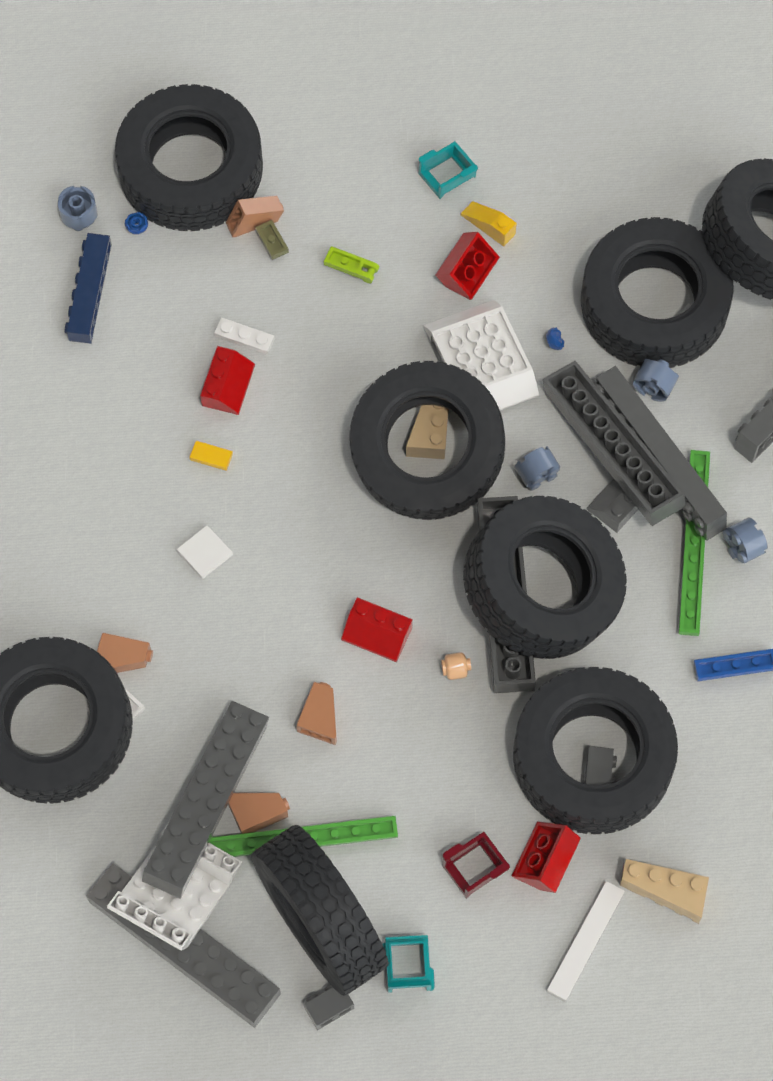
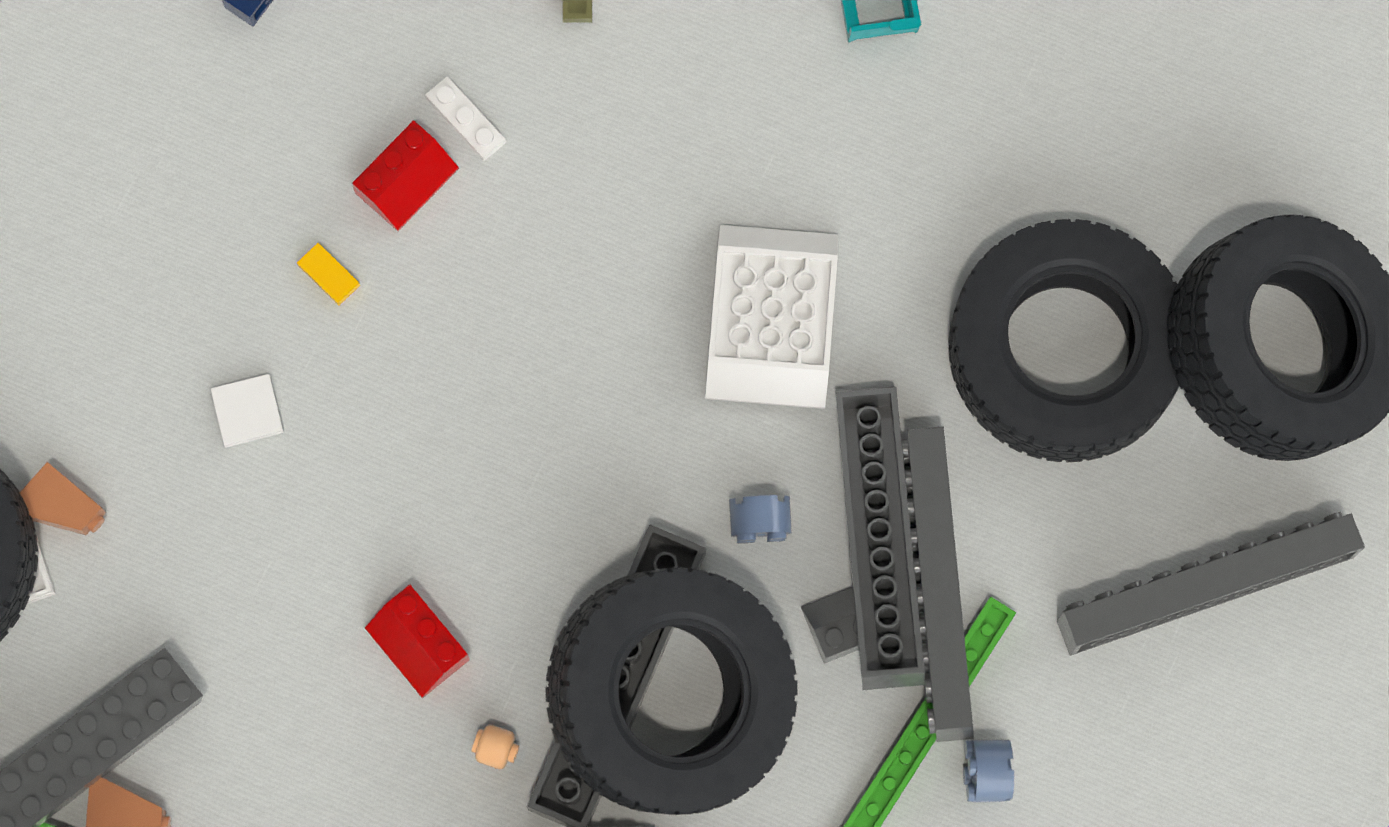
camera: 25 degrees right, 10 degrees up
(319, 714) = (277, 721): nougat slope -> none
(351, 264) = (667, 83): lime plate -> none
(427, 385) = (537, 390): black tyre -> none
(429, 433) = (650, 379): tan wedge -> none
(467, 265) = (829, 165): red slope -> none
(491, 222) = (897, 113): yellow slope -> none
(554, 339) = (891, 336): blue plate -> none
(655, 379) = (996, 469): sand blue brick -> none

